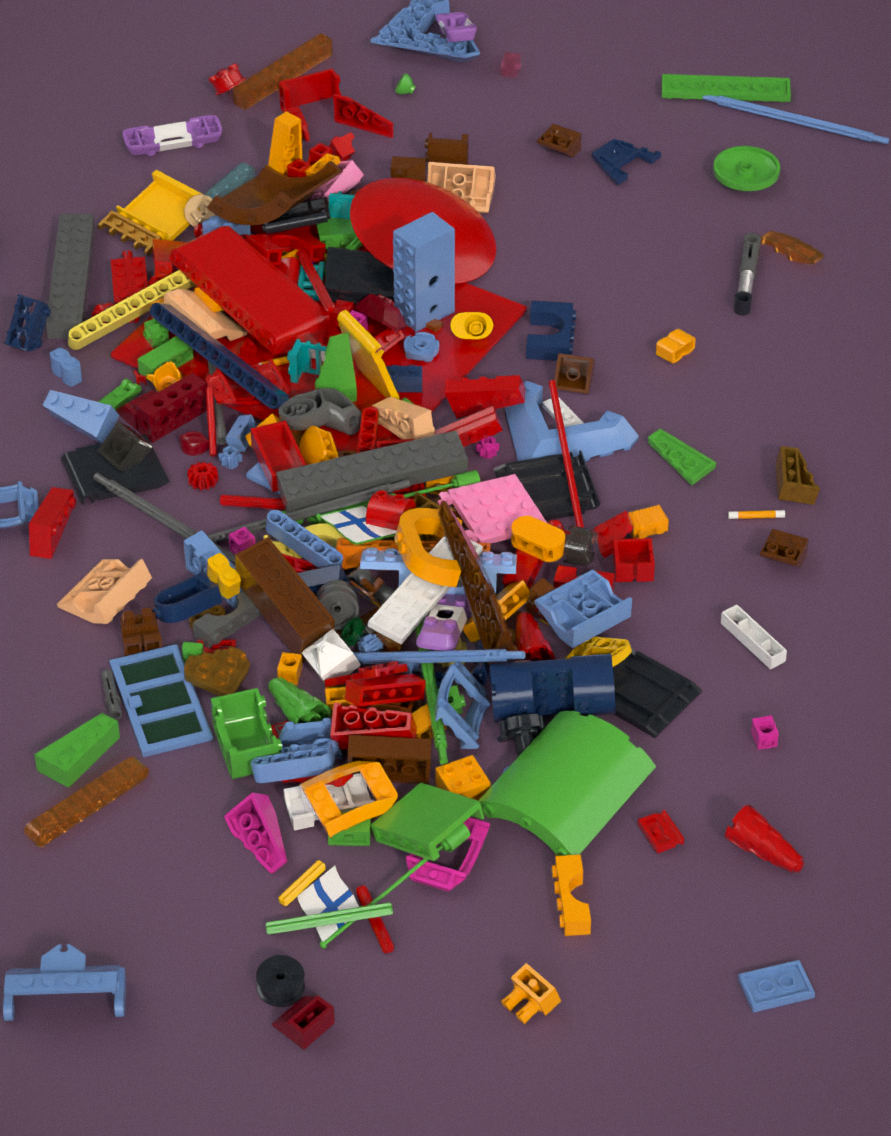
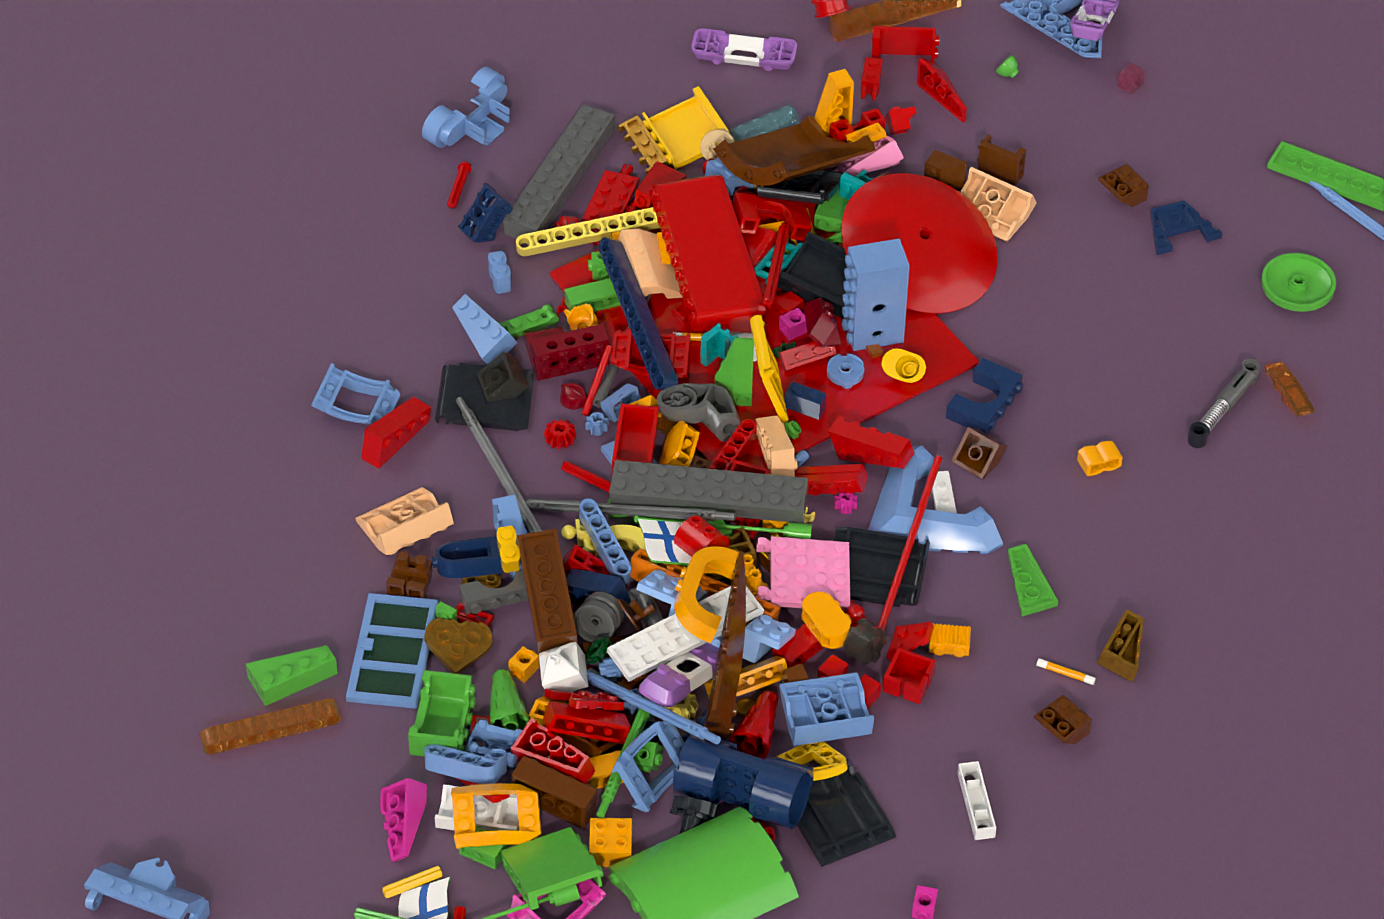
camera: 25 degrees right, 5 degrees up
(114, 709) = (349, 635): dark grey pin -> none
(240, 540) = (554, 517): dark pink brick -> none

